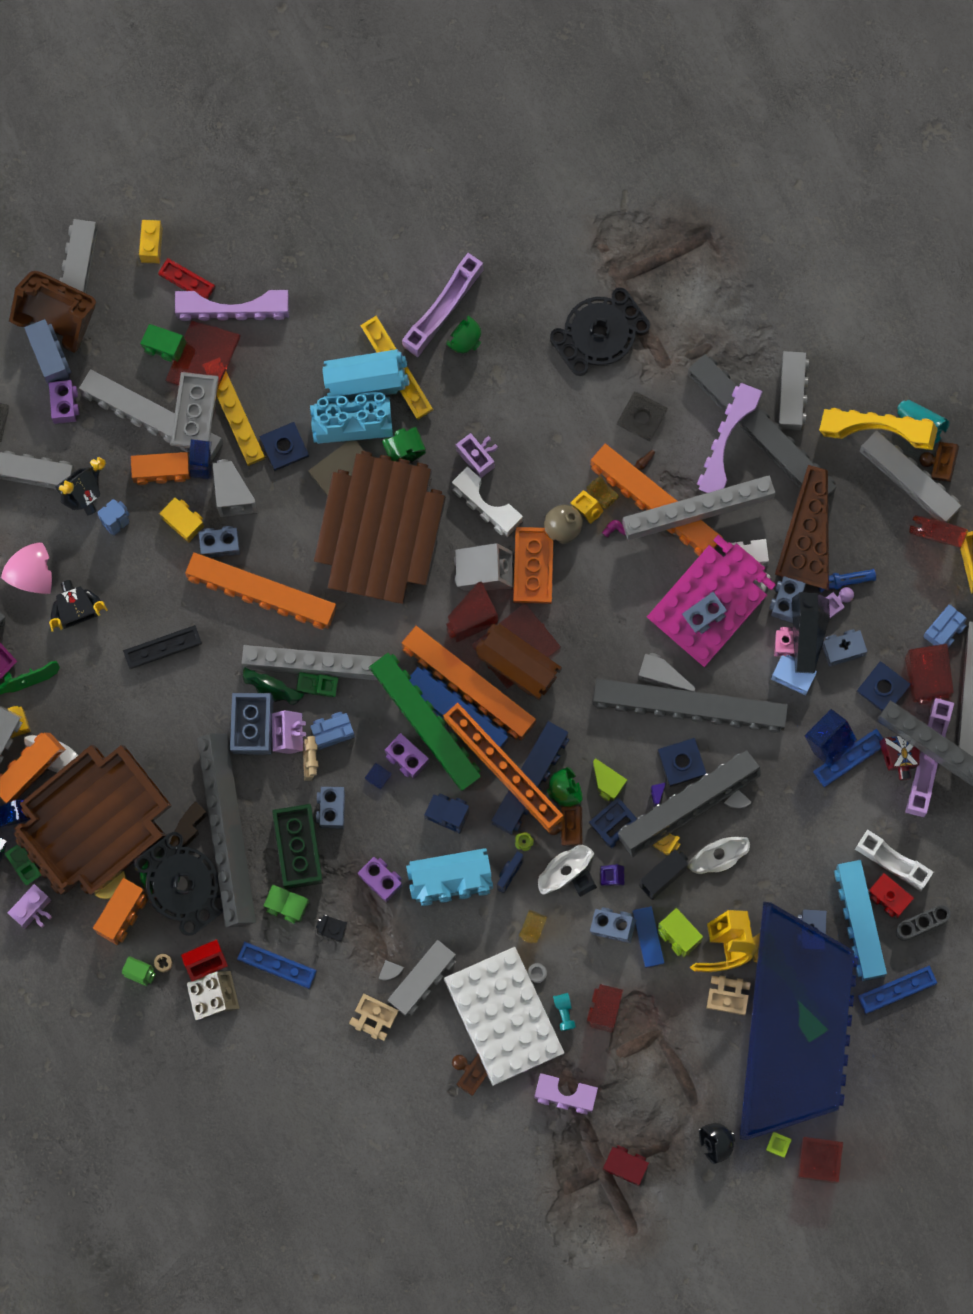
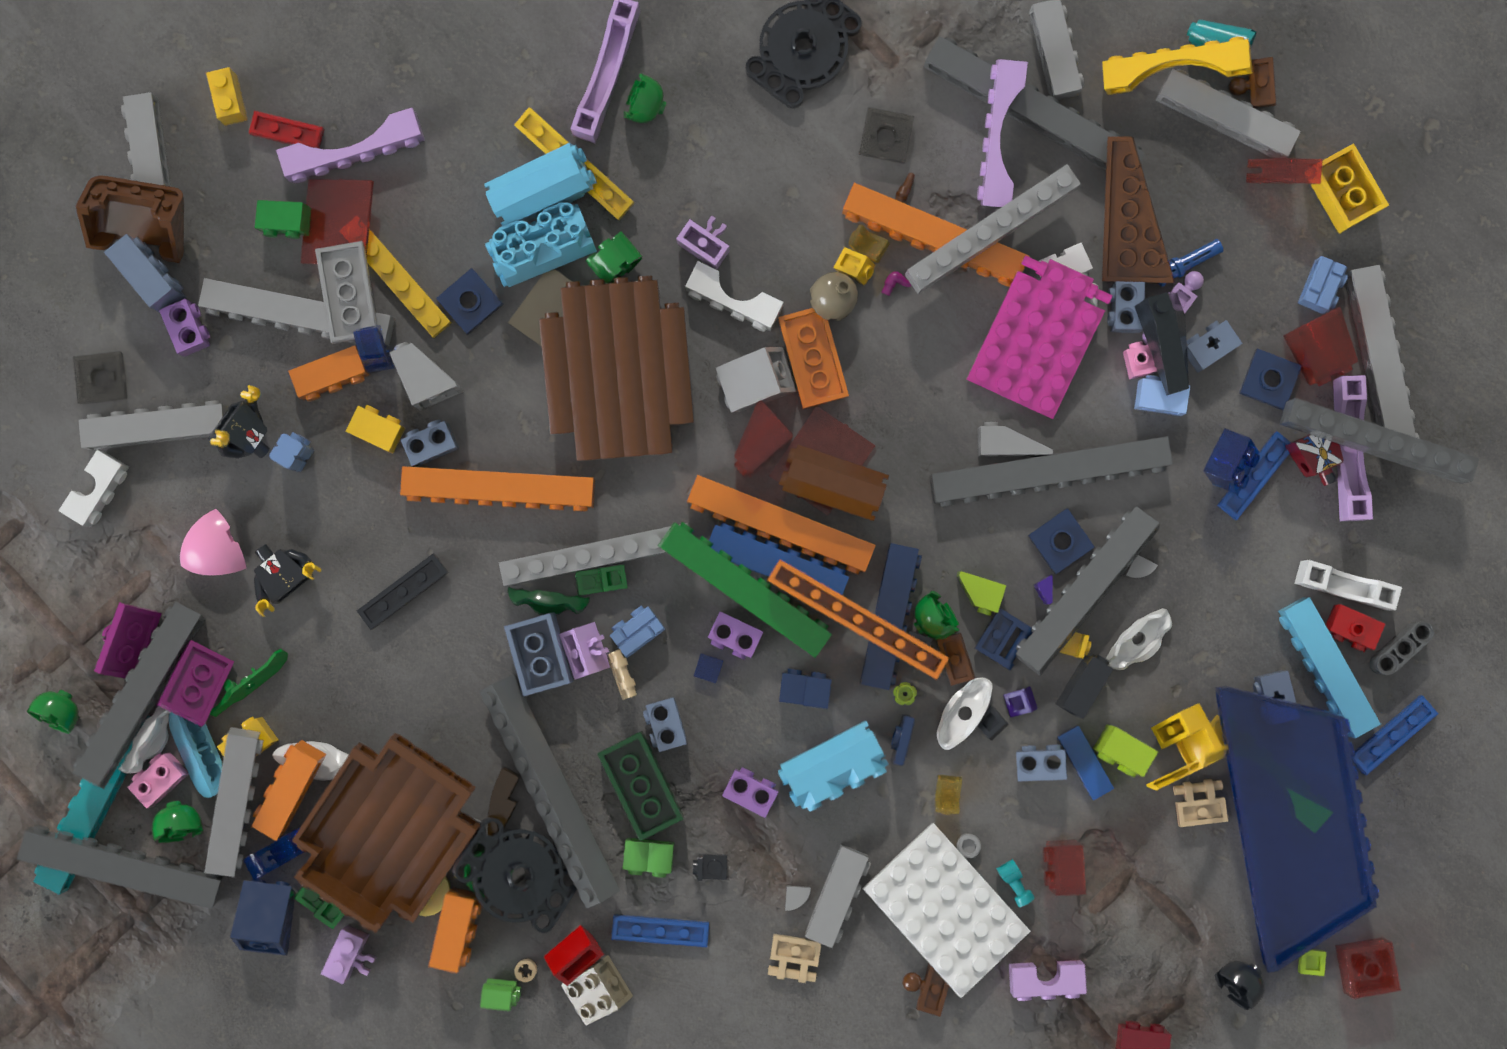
camera: 20 degrees left, 10 degrees up
(701, 608) = (1033, 351): sand blue brick -> none

